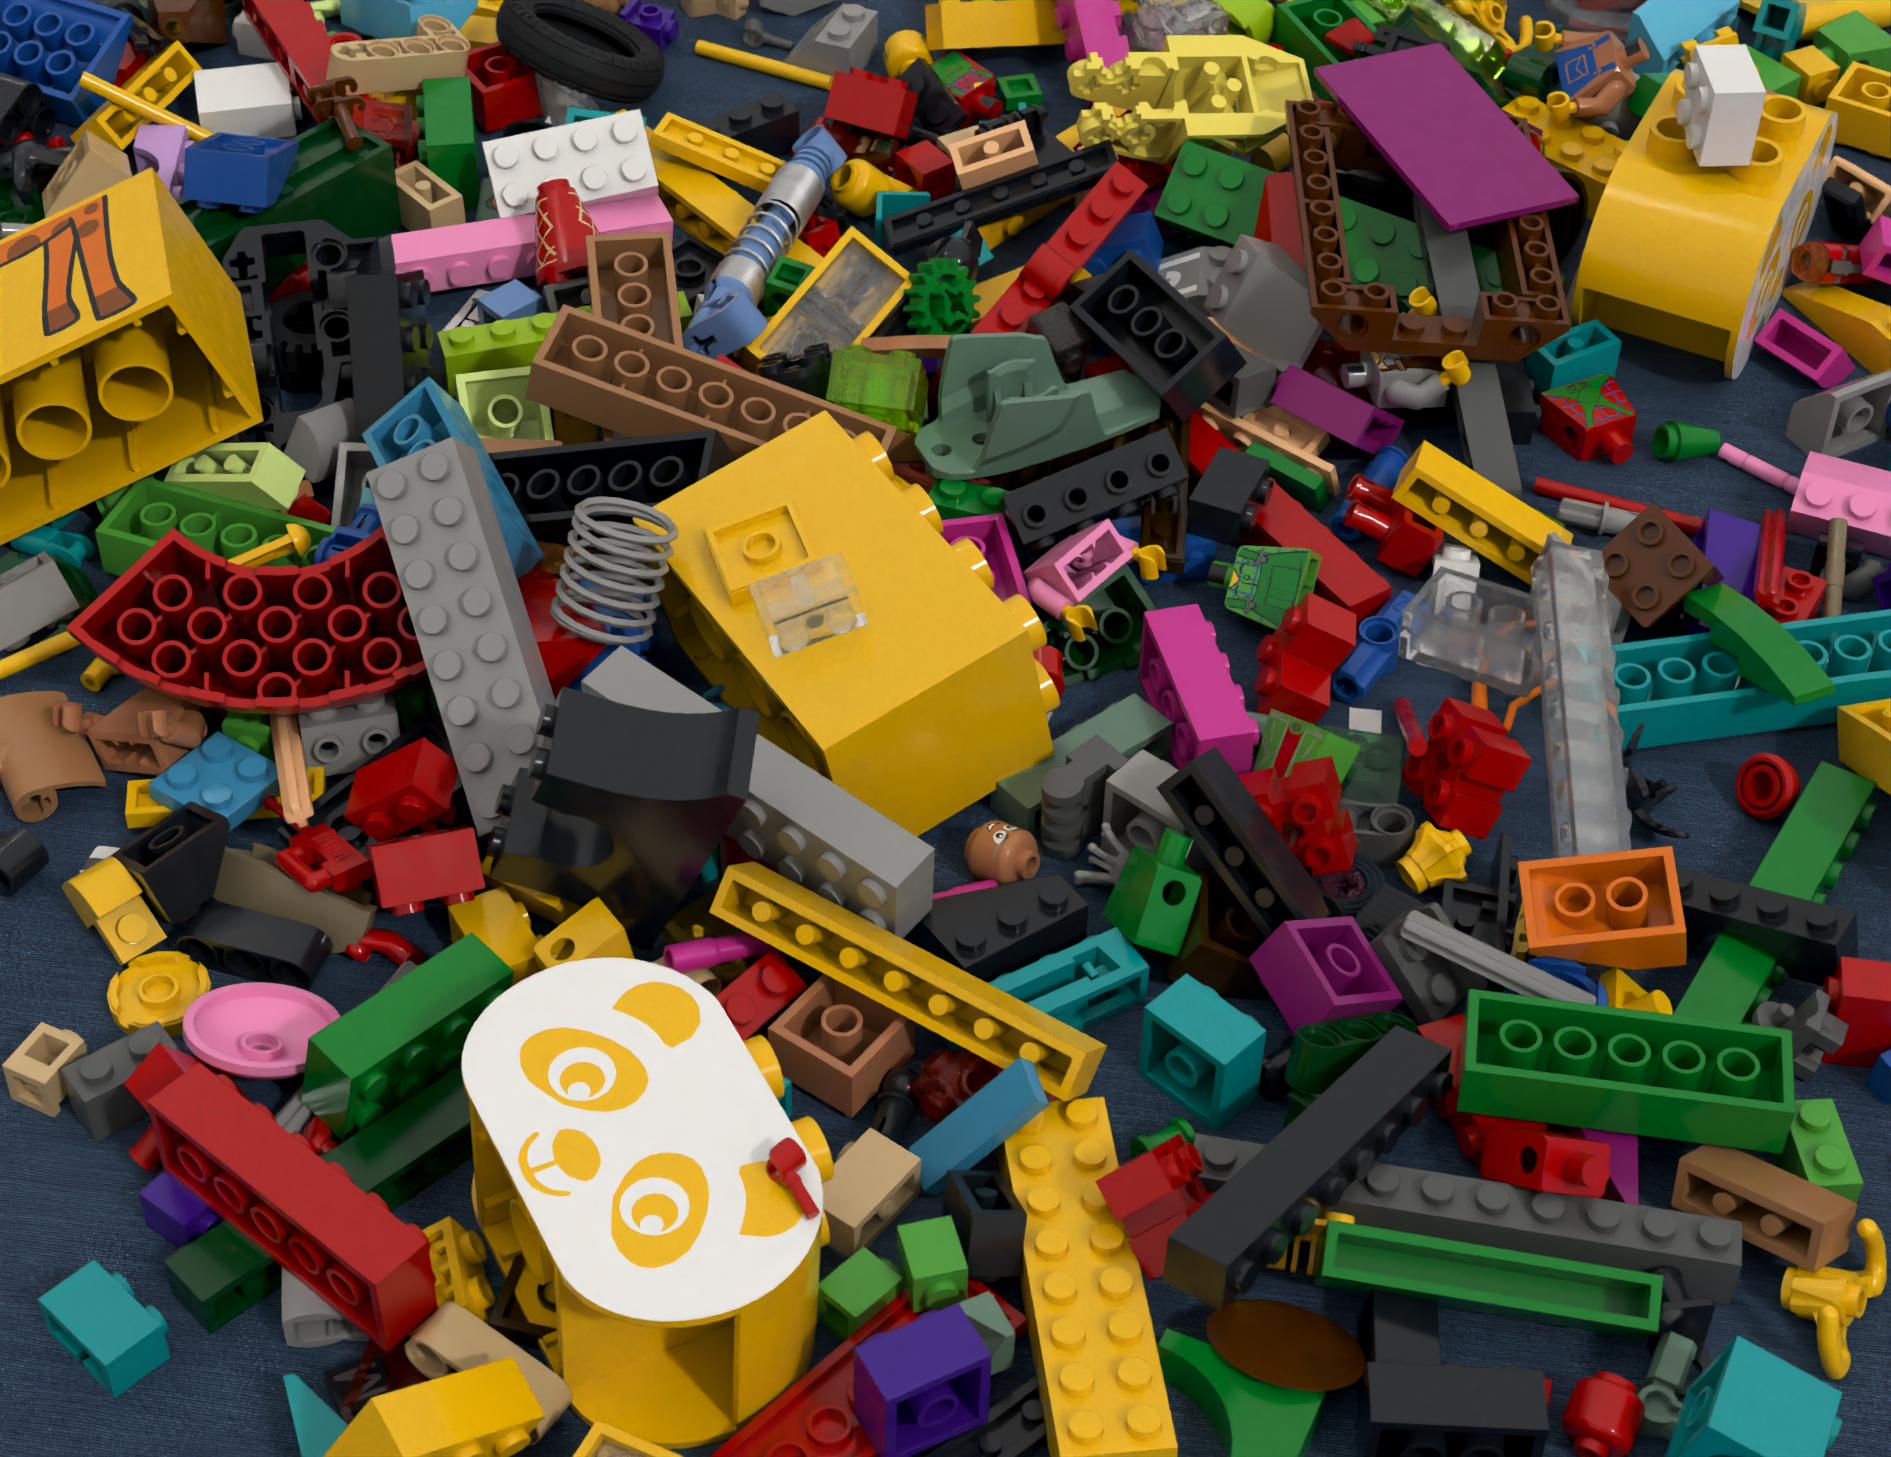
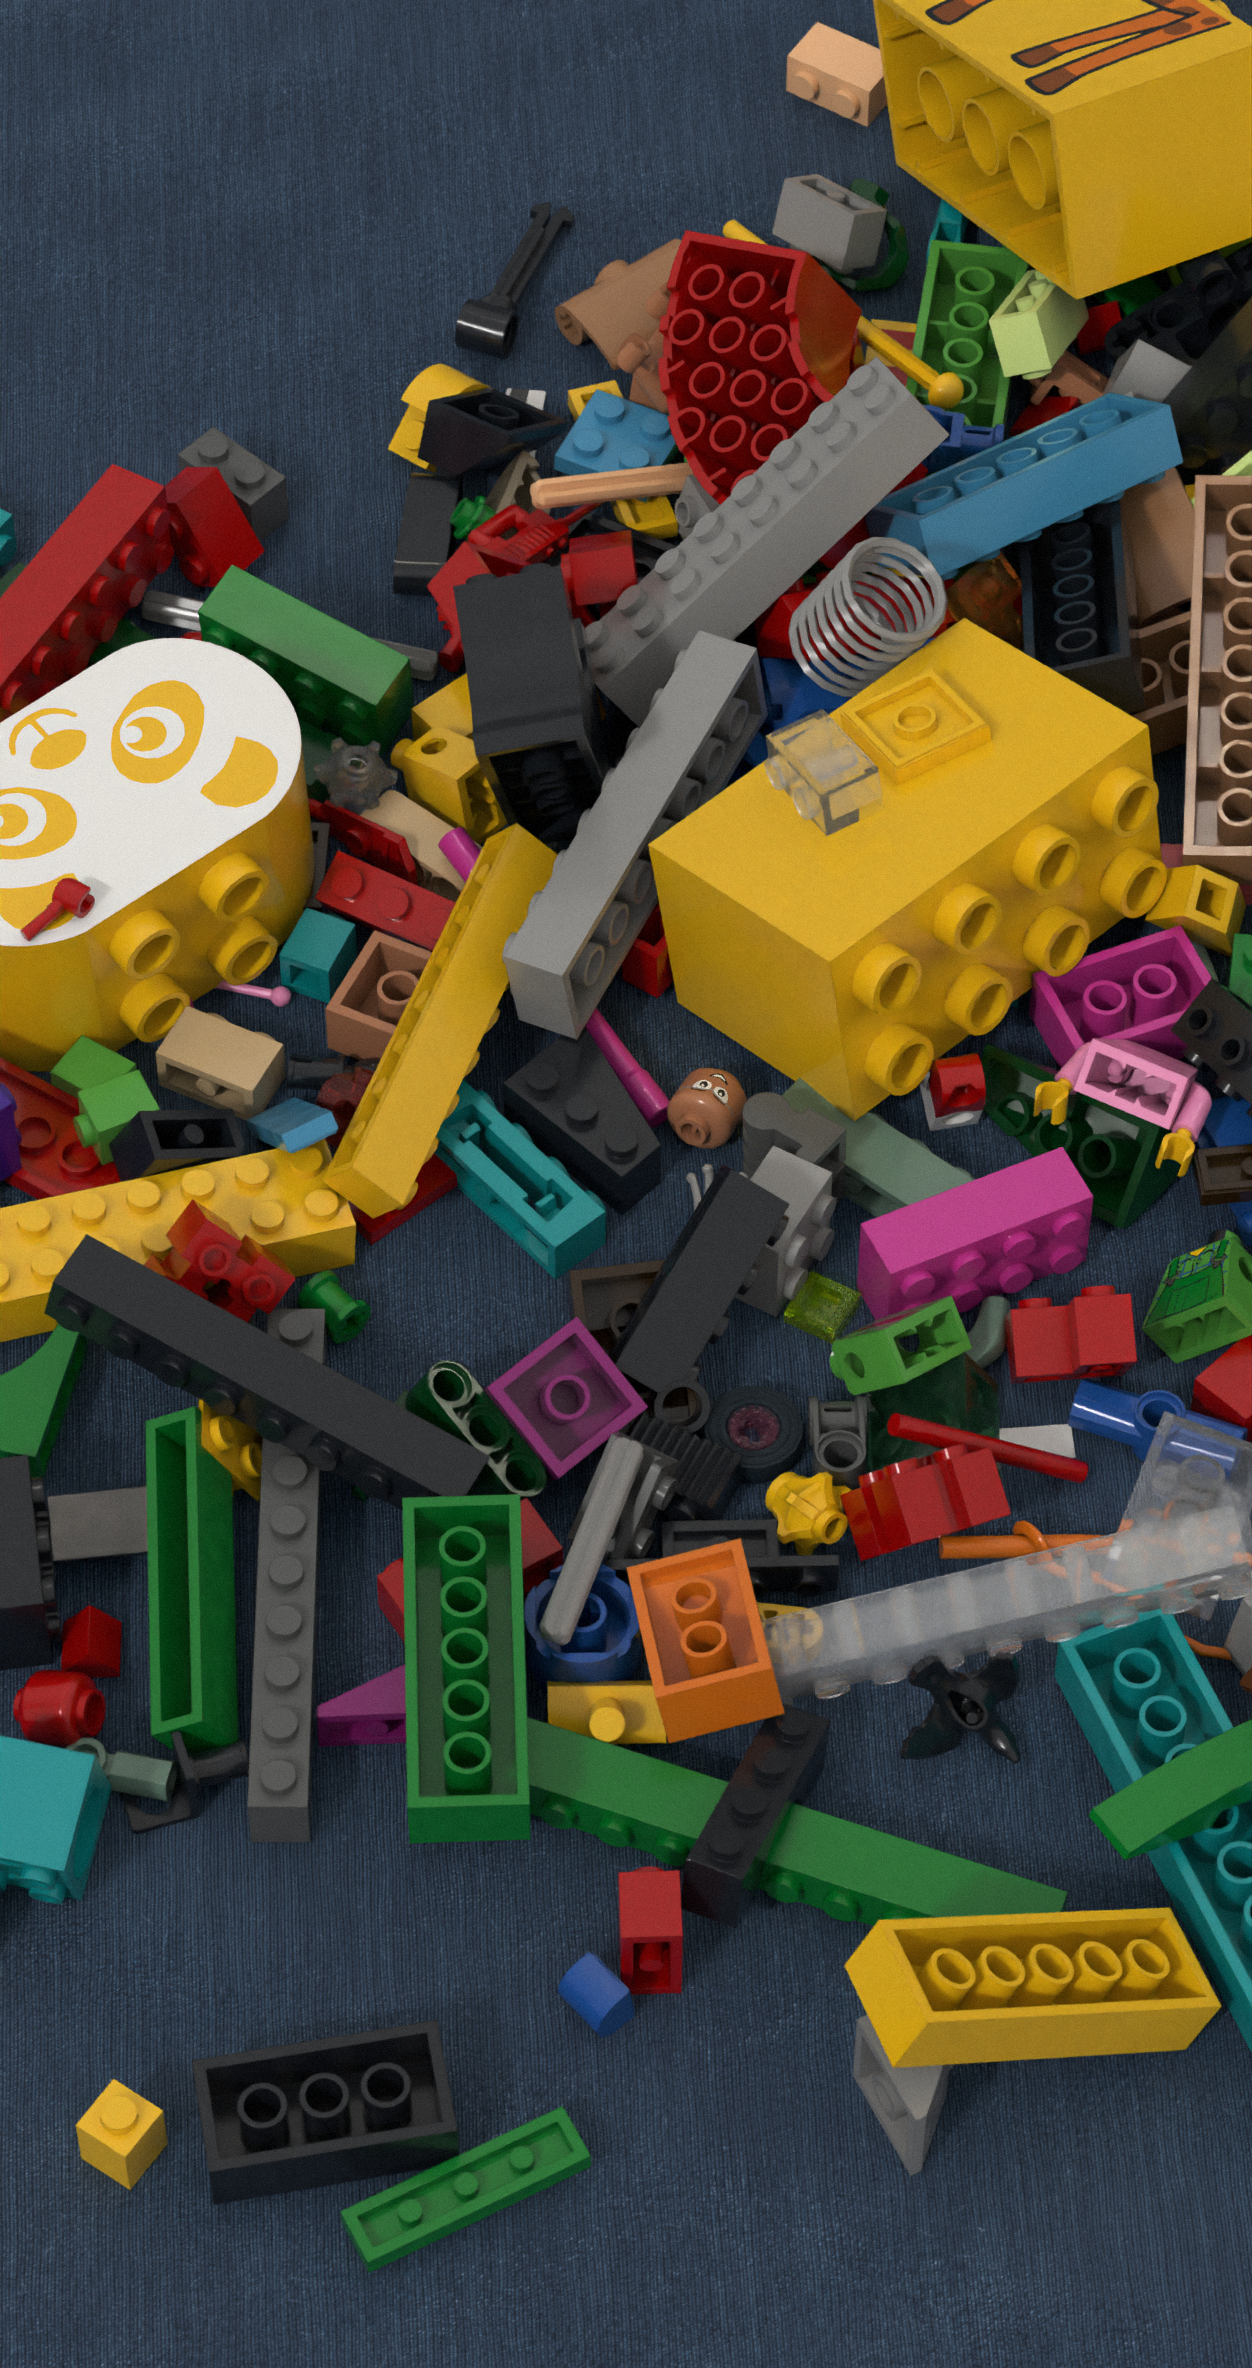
camera: 80 degrees right, 10 degrees up
(36, 1065) = (244, 420): tan brick -> none
(156, 989) = (360, 488): yellow tile -> none
(255, 1028) = (315, 544): bright pink dish -> none
(279, 890) = (469, 516): none -> green plate
(992, 1328) = (49, 1172): sand green slope -> none
(1156, 894) = (654, 1222): green torso -> none
(1201, 1052) = (445, 1303): teal brick -> none
(1286, 1345) = (87, 1423): reddish brown sticker -> none
(1307, 813) = (784, 1342): red brick -> none
(1564, 1160) = (351, 1625): red torso -> none
(1766, 786) = (1033, 1851): red brick -> none
(1775, 1206) = (342, 1839): medium nougat brick -> none
(1808, 1025) = (607, 1850): dark grey hips -> none
(1820, 1149) = (436, 1899): bright green brick -> none
(1836, 1297) = (249, 1920): yellow piece -> none

